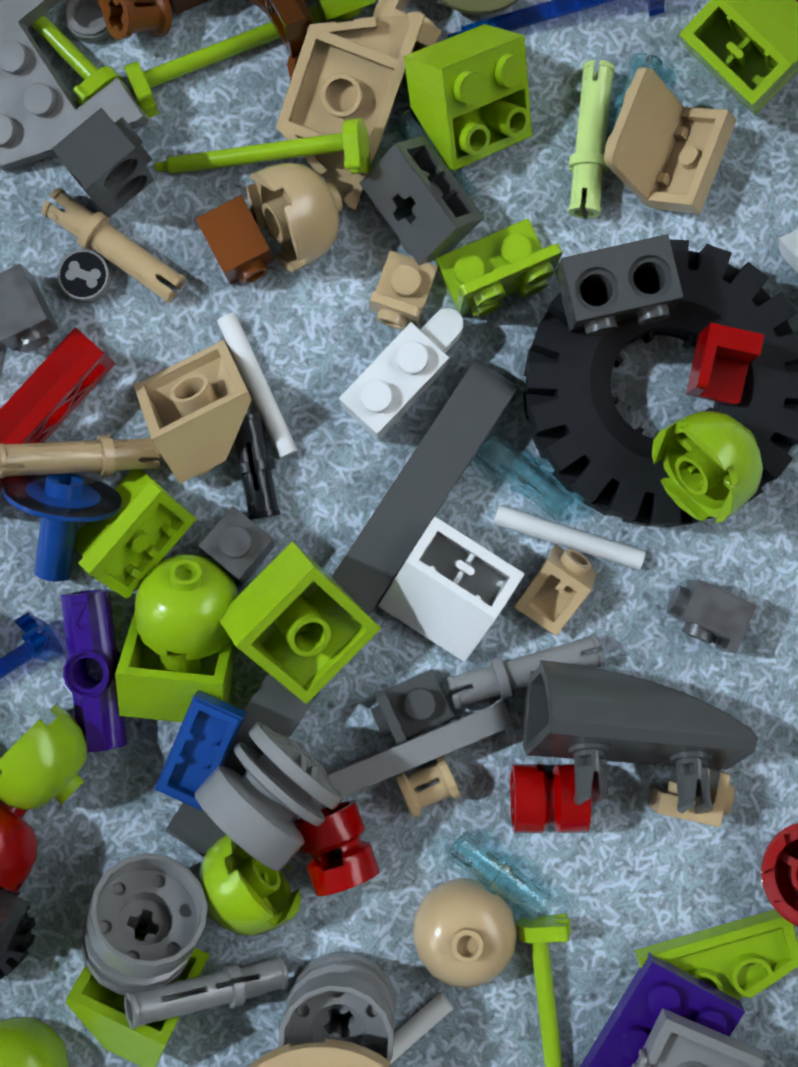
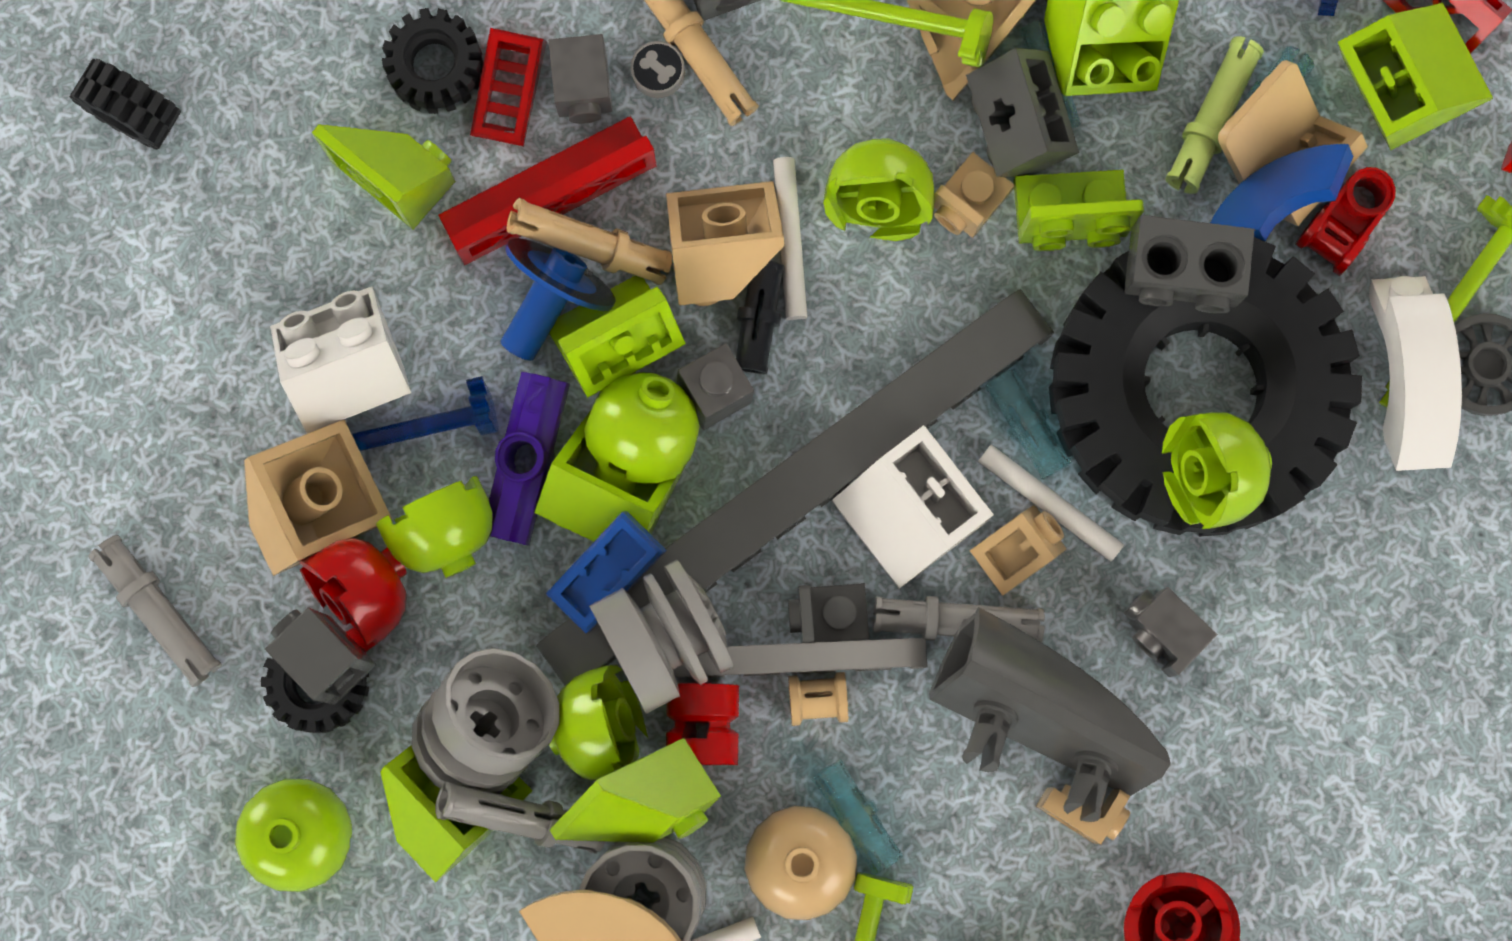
camera: 20 degrees right, 5 degrees down
(236, 241) = (822, 89): dark orange brick -> none
(297, 207) = (896, 74): tan cylinder -> none
(298, 623) = (751, 481): lime slope -> none
(309, 944) = (643, 800): none -> lime slope
(320, 311) = (880, 187): none -> lime cylinder
(402, 373) = (940, 276): white brick -> none
(546, 799) = (934, 755): red wheel -> none
(677, 184) = (1285, 187): none -> blue tile
(722, 362) = (1266, 377): red panel -> none
(740, 199) = (1343, 225): none -> red piece

